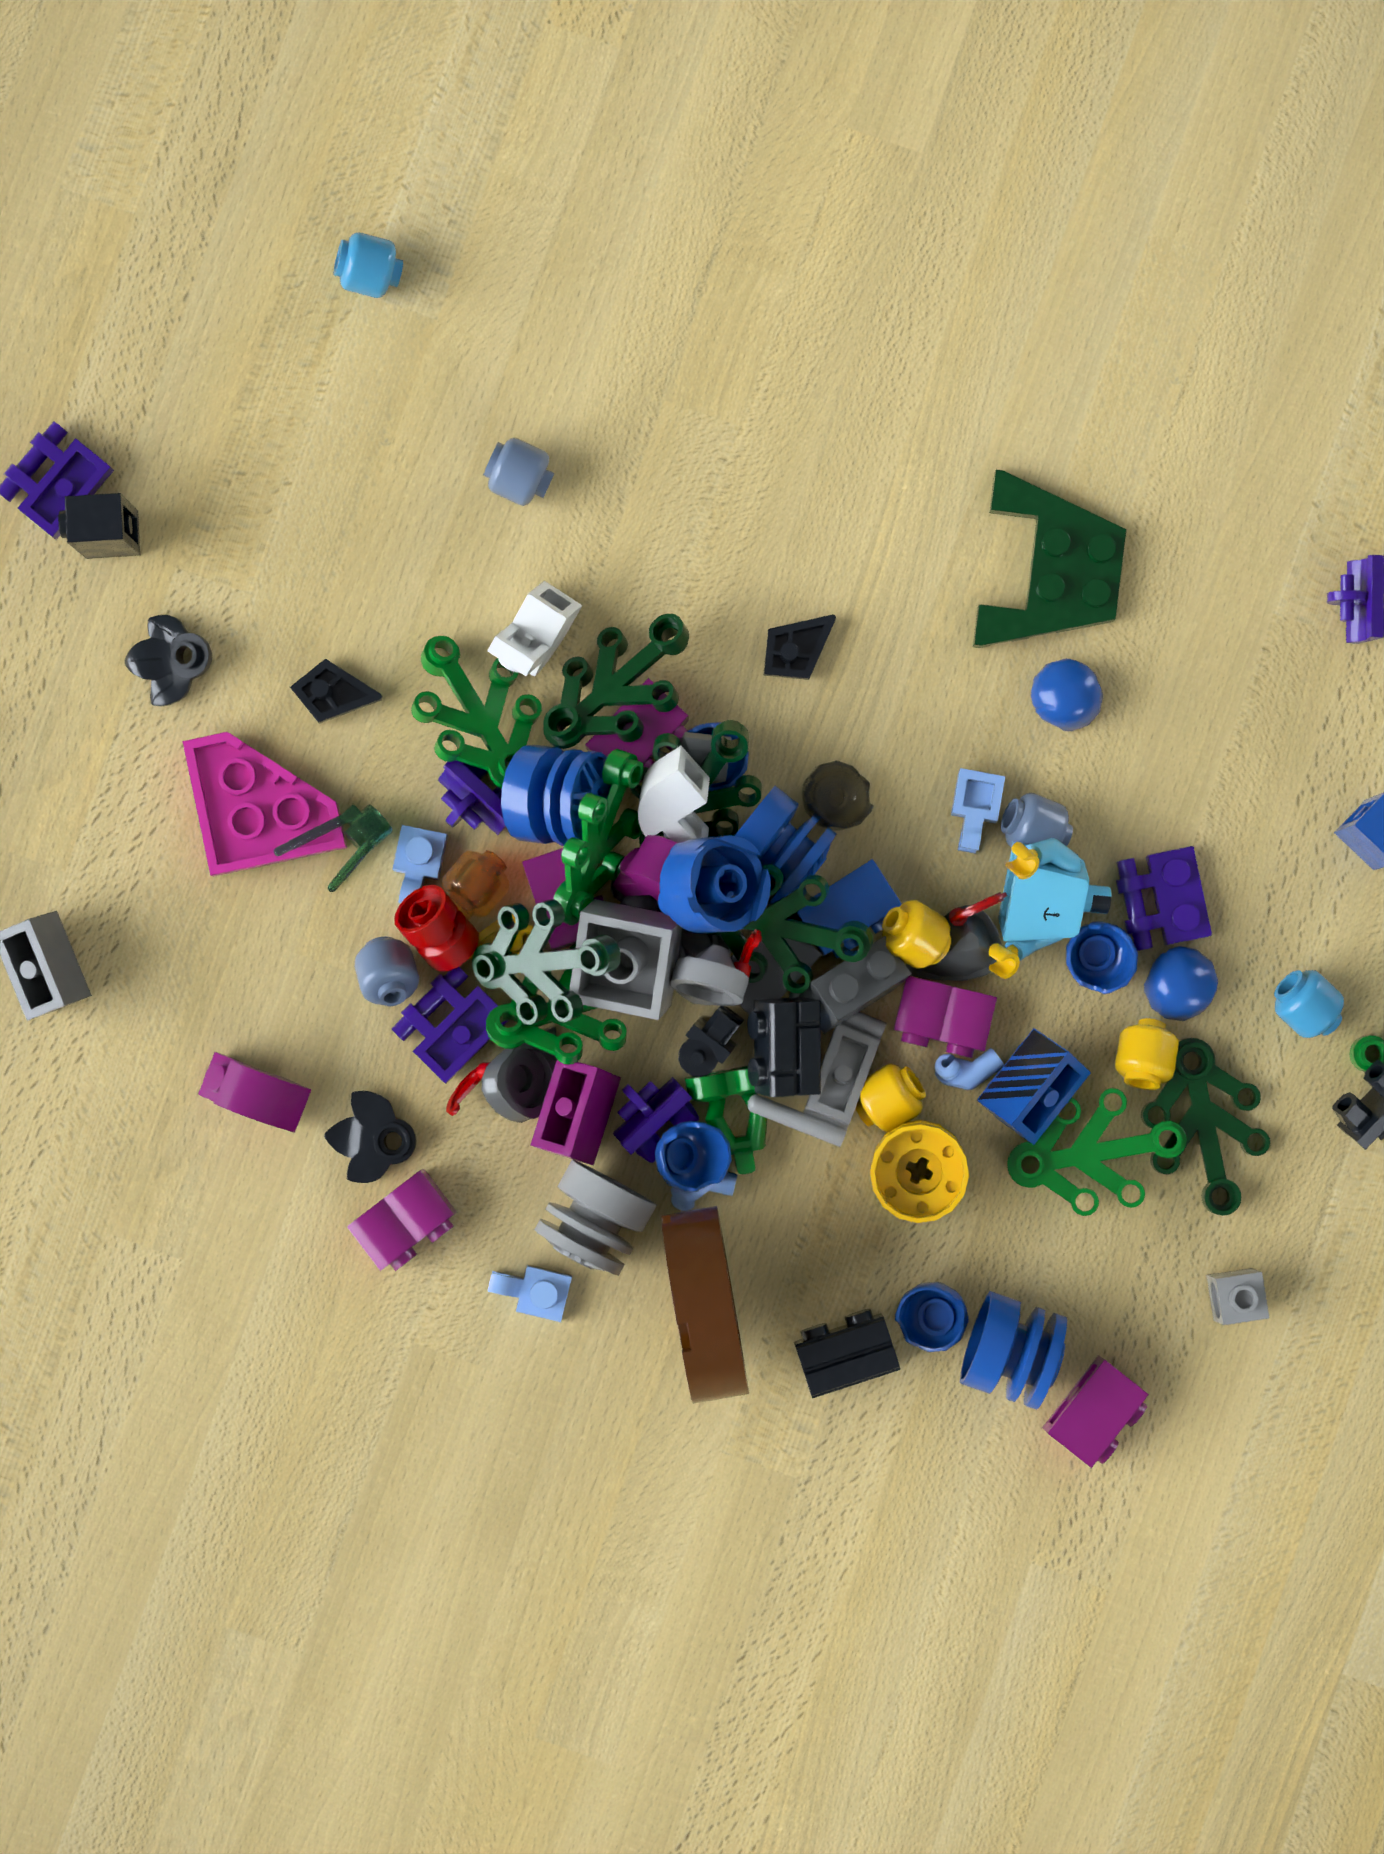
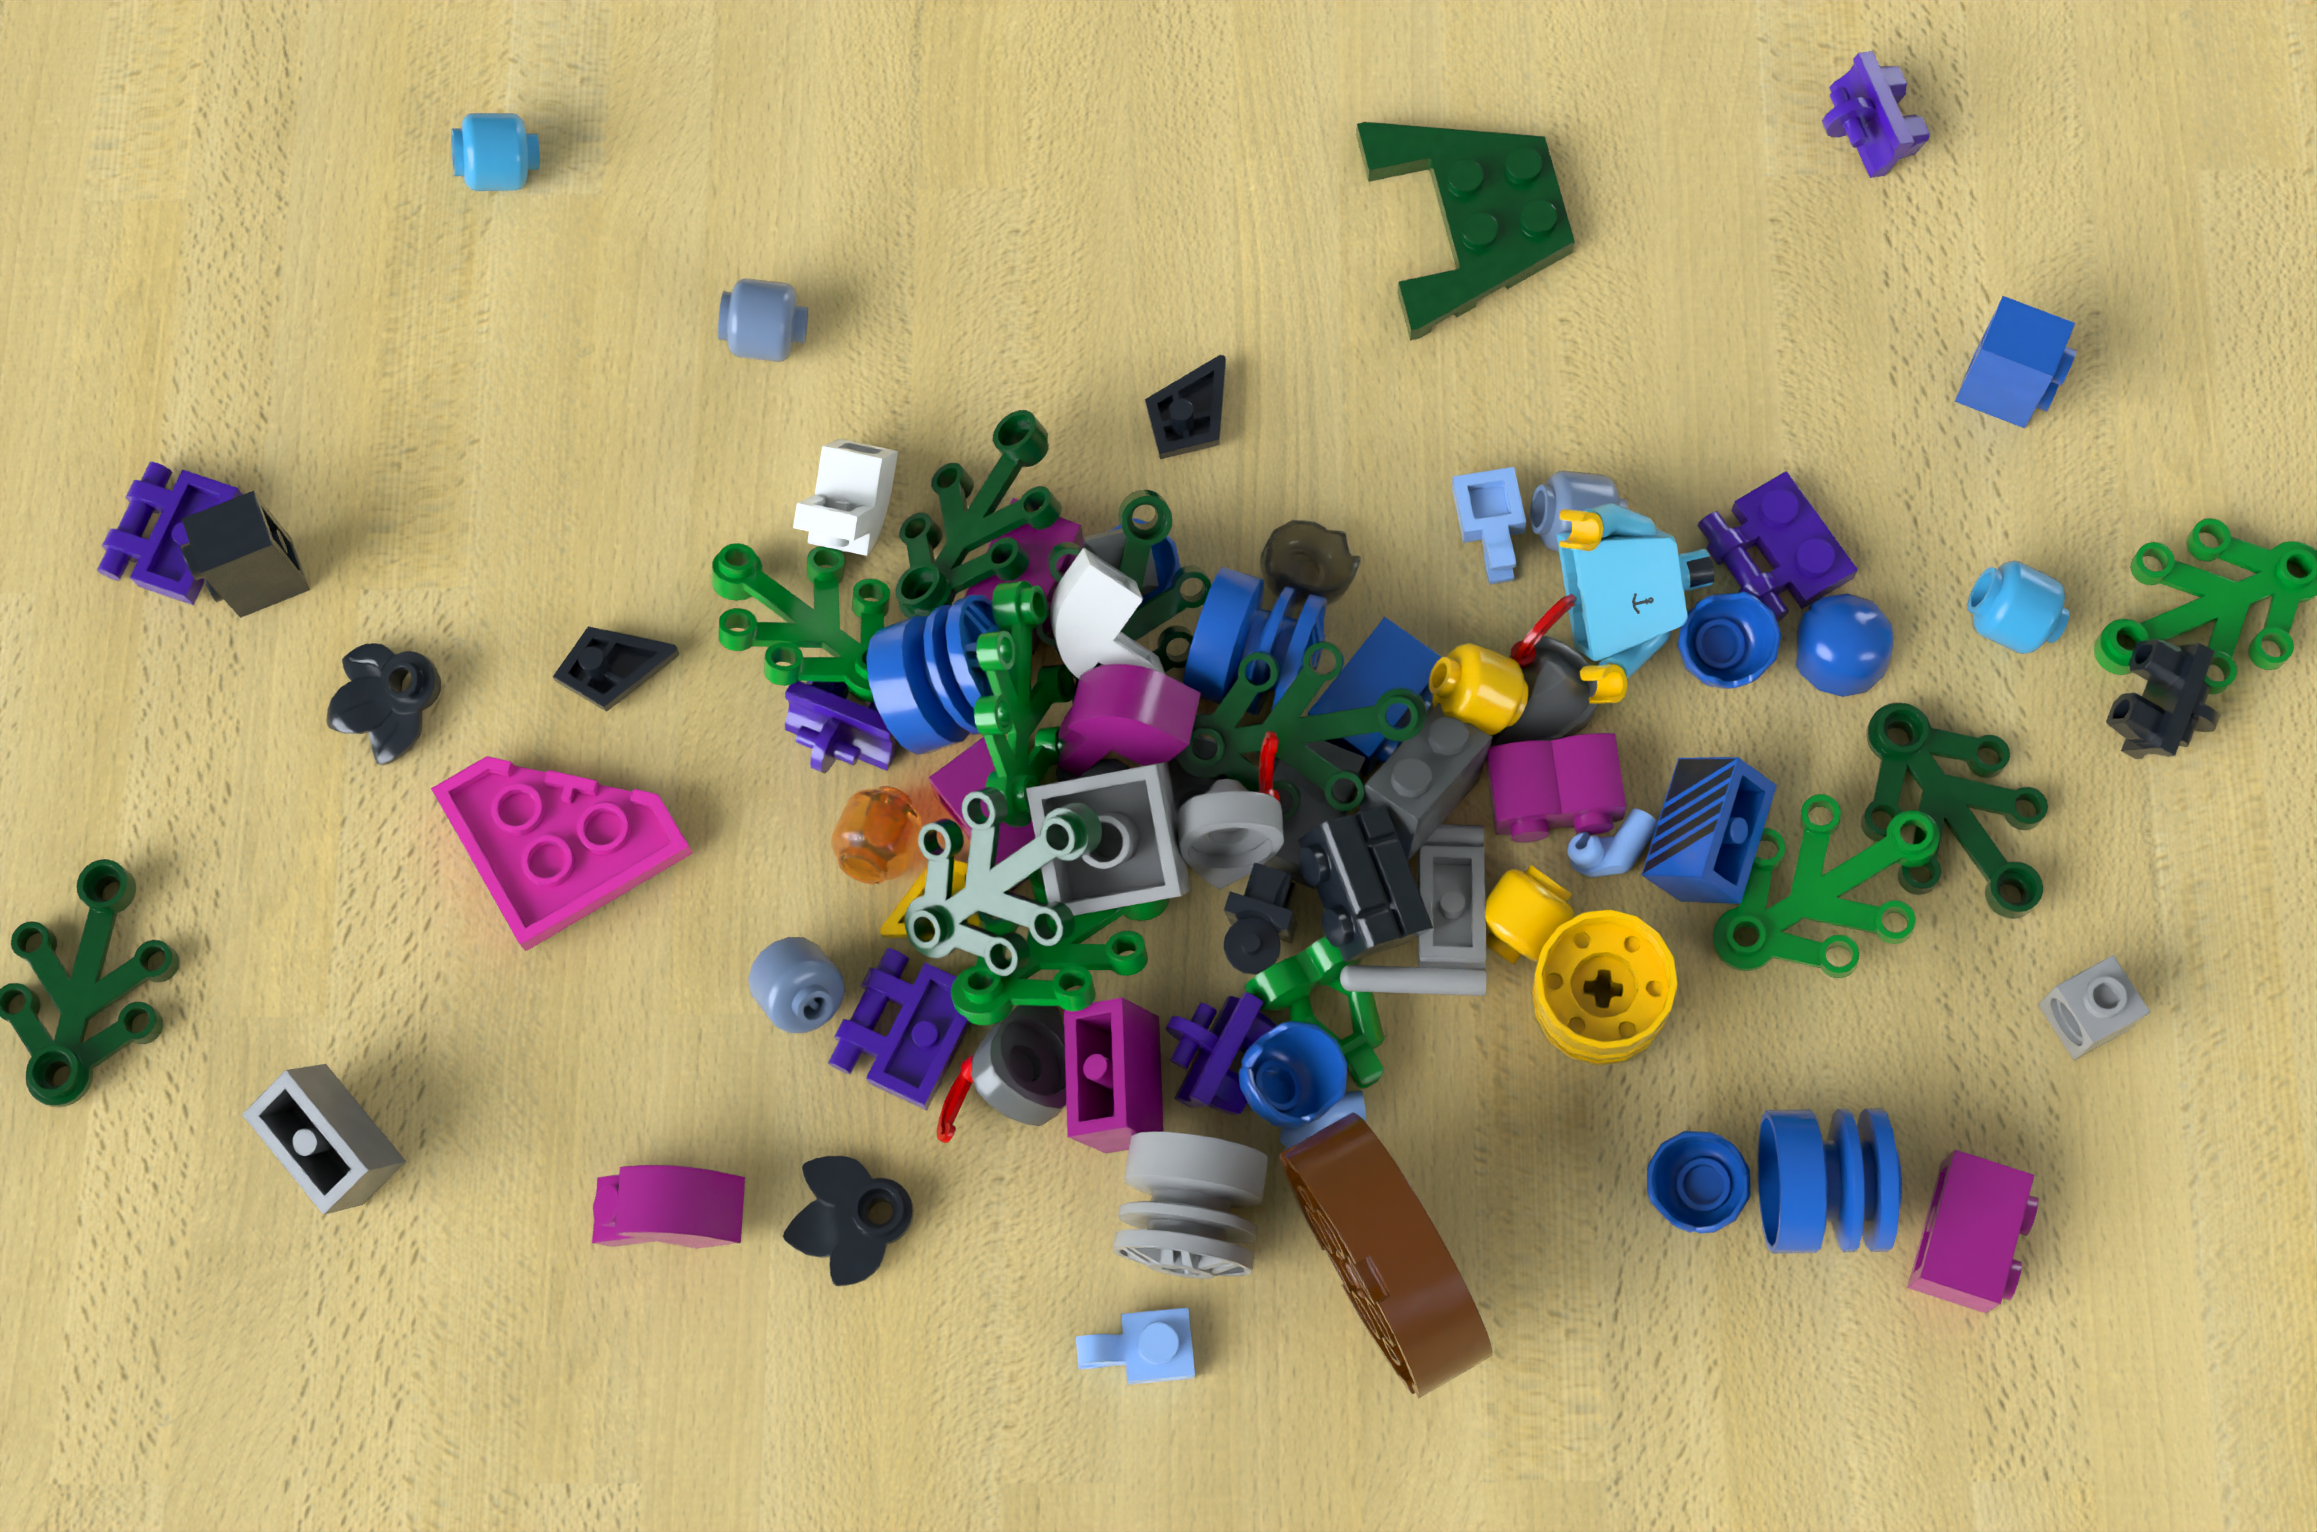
camera: 15 degrees left, 15 degrees down
(365, 832) = (708, 821): clear green plant -> none
(403, 1220) = (929, 1312): magenta brick -> none
(418, 857) = (790, 833): light blue plate -> none
(436, 928) = (849, 908): red wheel -> none
(713, 884) = (1189, 687): blue brick -> none
(846, 1353) = (1601, 1275): black brick -> none
(1067, 694) = (1551, 349): blue hair -> none
(1146, 1054) = (1838, 742): yellow head -> none

